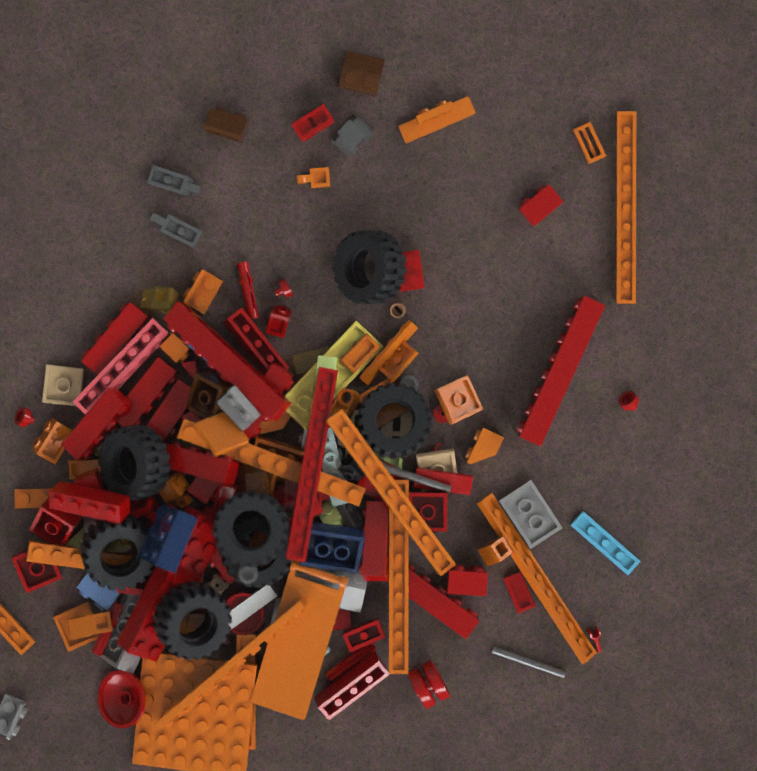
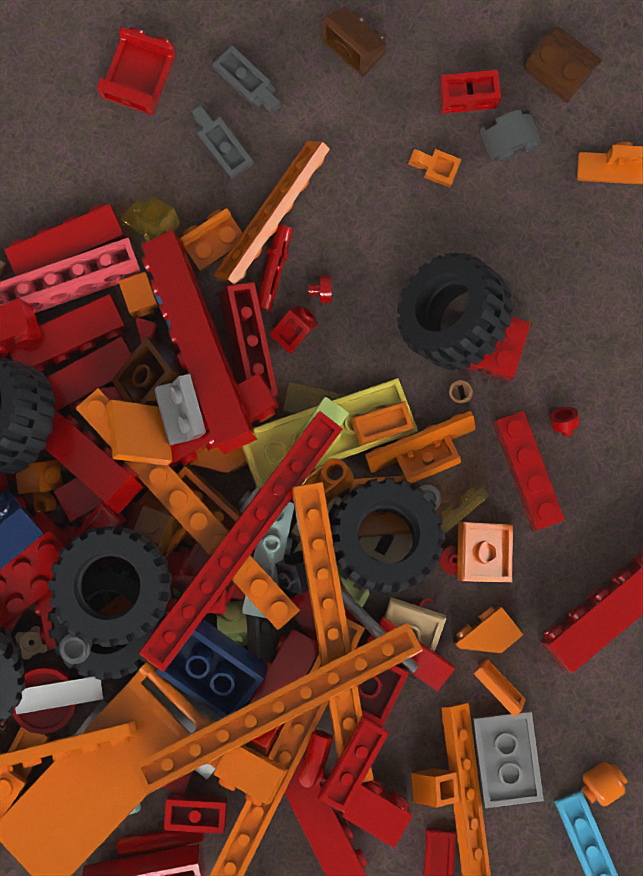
camera: 25 degrees right, 5 degrees down
(103, 209) = (138, 70): none -> red panel
(229, 258) = (271, 212): none -> orange plate
(379, 595) = (249, 773): none -> orange hinge
(380, 549) = (277, 708): none -> orange plate
(417, 568) = (315, 758): none -> red bar
(428, 388) = (470, 501): none -> clear yellow plate
(439, 561) = (353, 764): none -> red tile
(461, 338) = (528, 471): none -> red brick
(468, 296) = (565, 420): none -> red tile
(505, 474) = (500, 687): none -> orange tile
(593, 500) = (604, 783): none -> orange head

